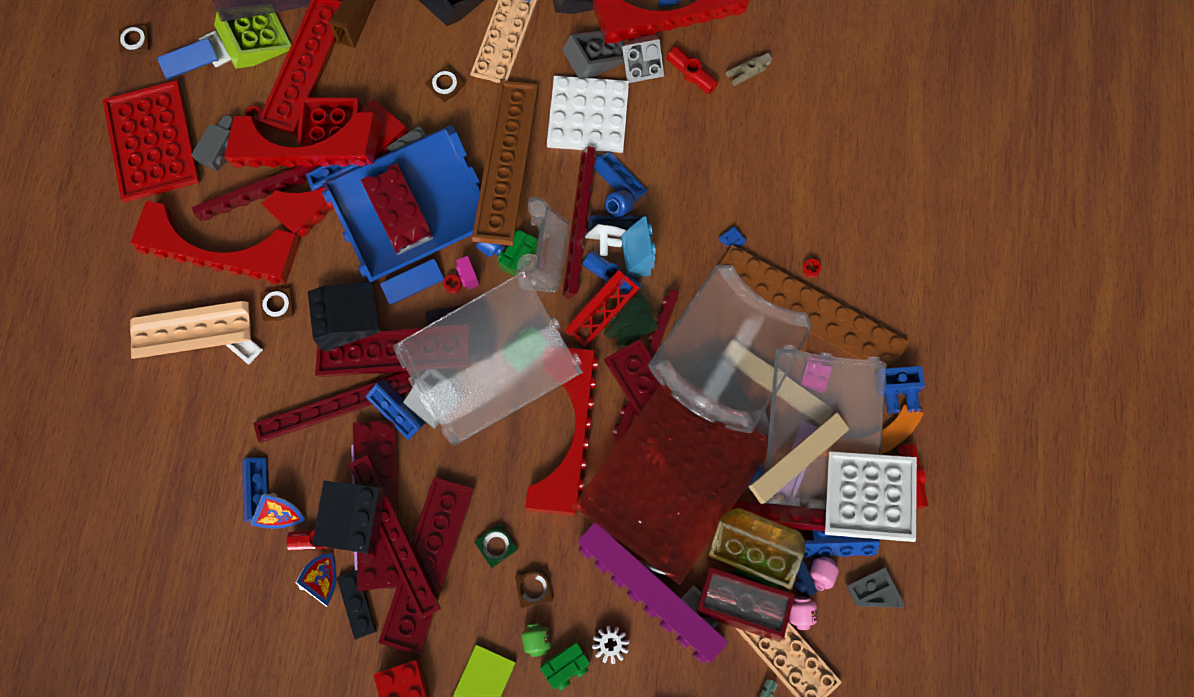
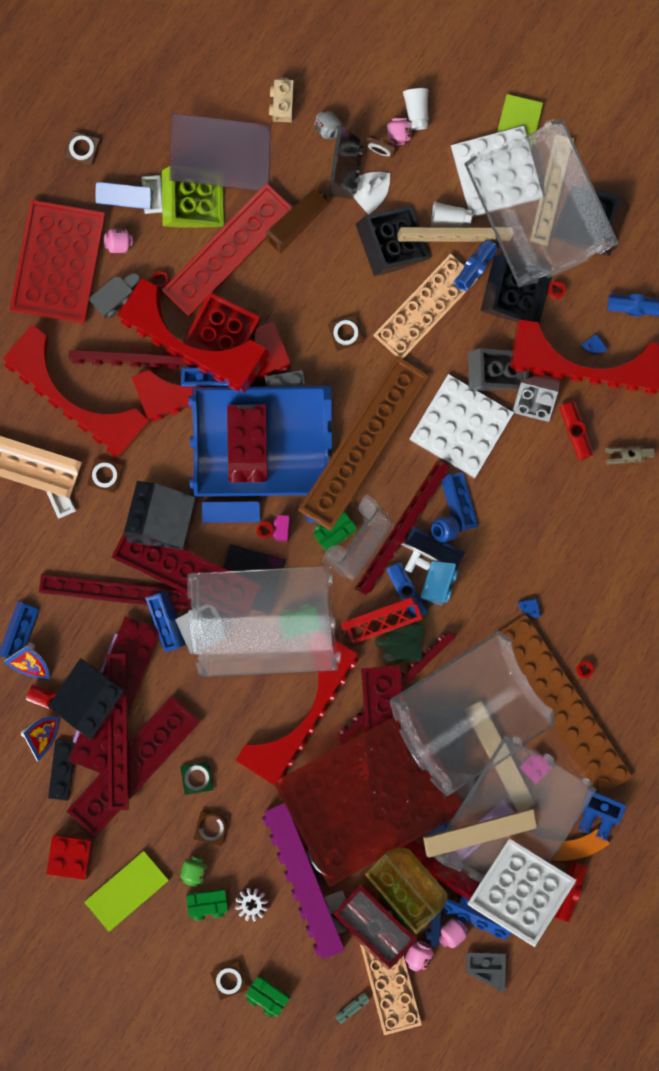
camera: 20 degrees right, 10 degrees up
(199, 98) = (118, 240): none -> bright pink head

